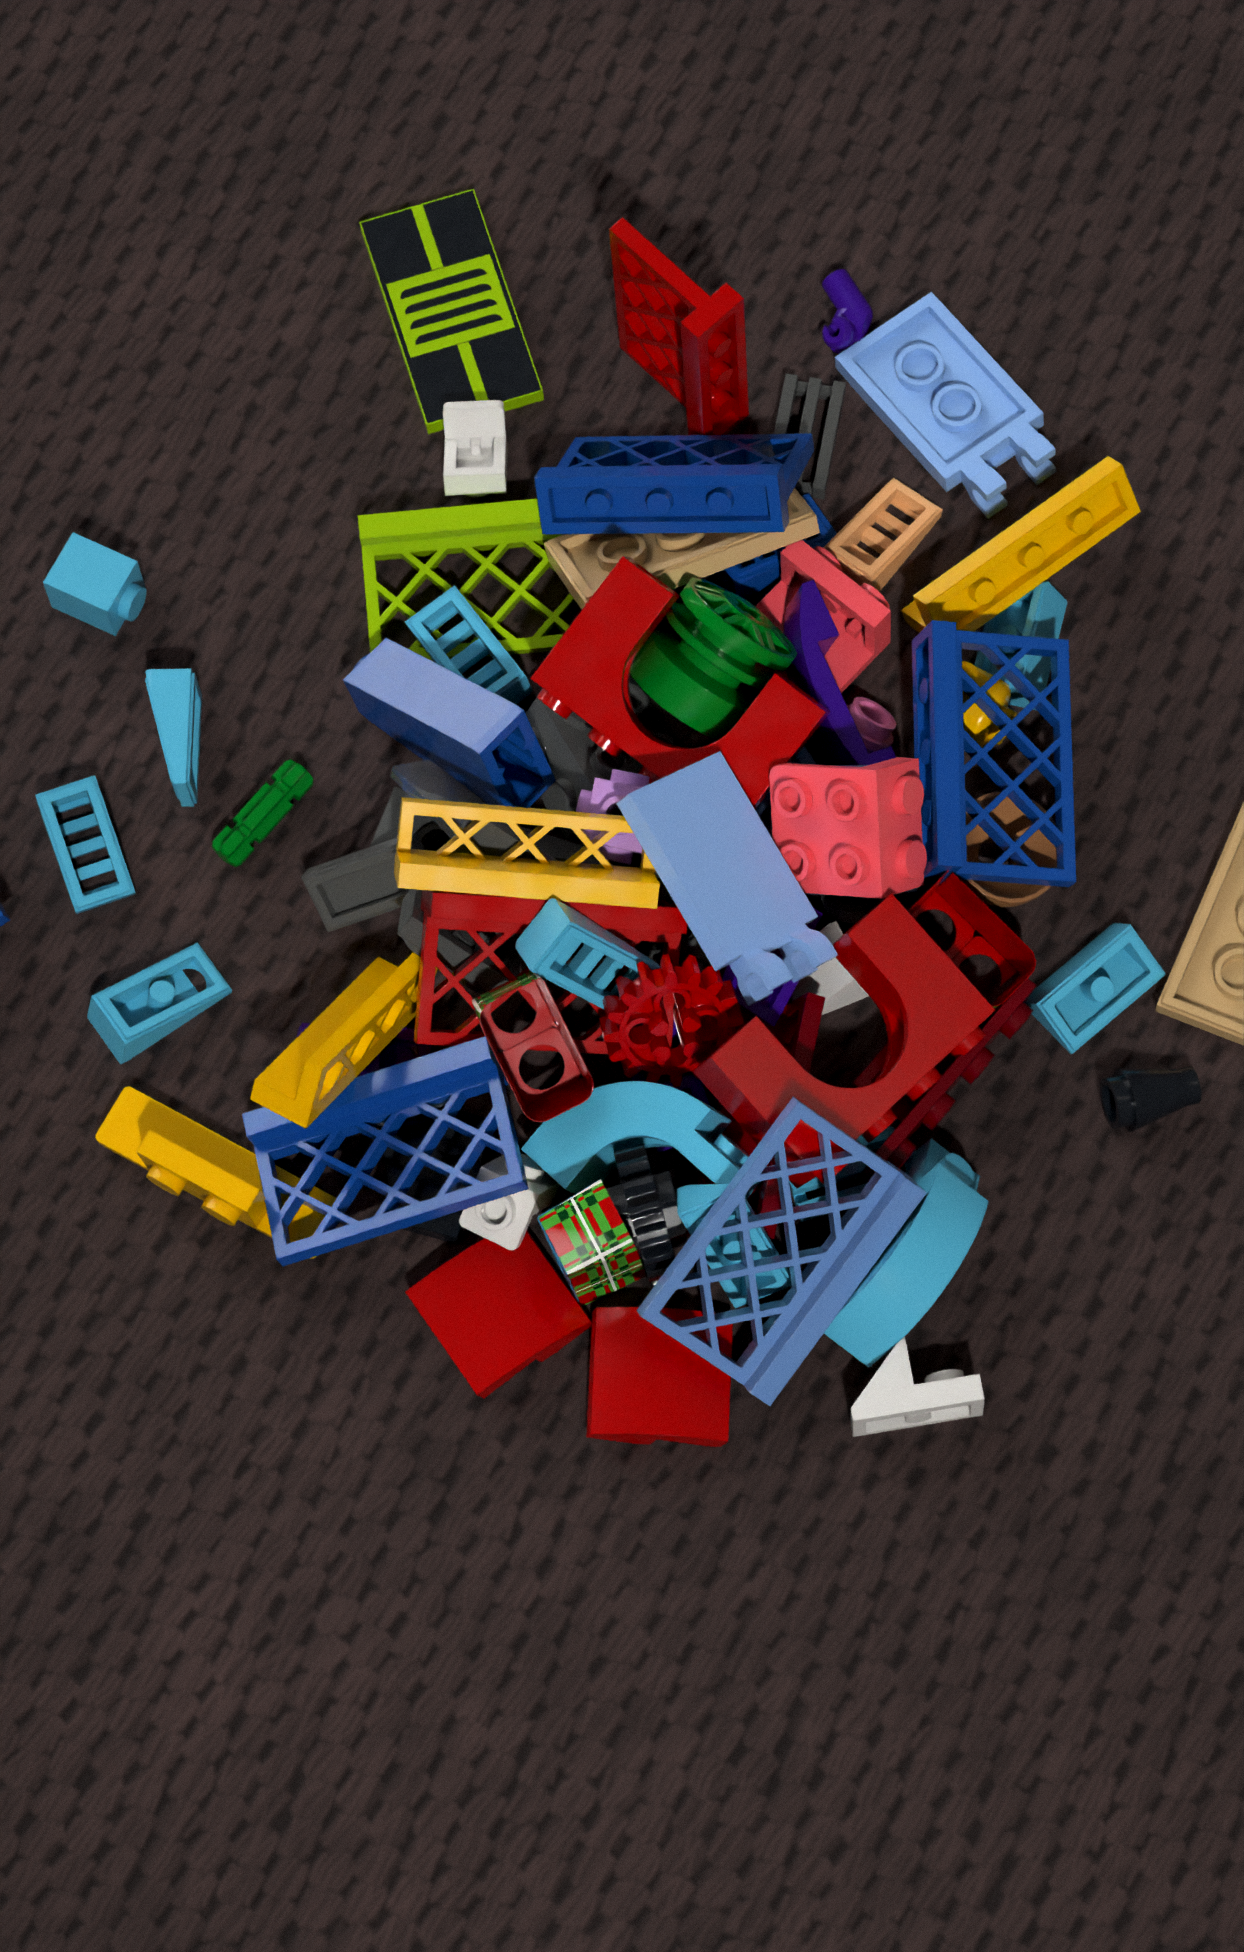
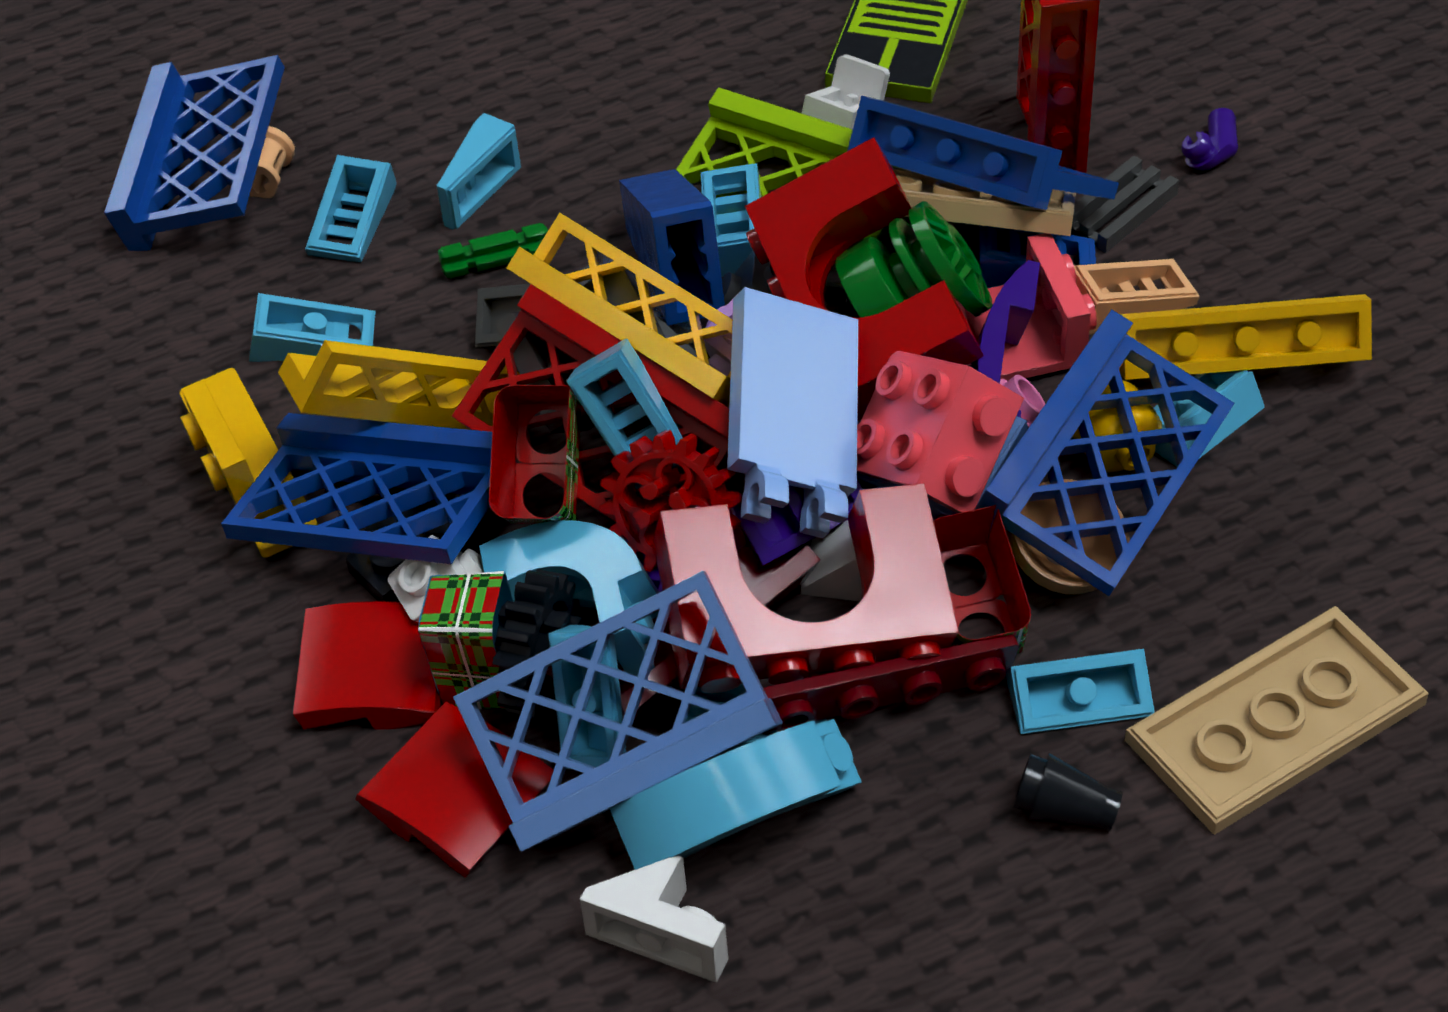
camera: 30 degrees right, 20 degrees down
(95, 584) = (499, 60): medium azure brick -> none
(948, 402) = (1257, 225): light blue tile -> none

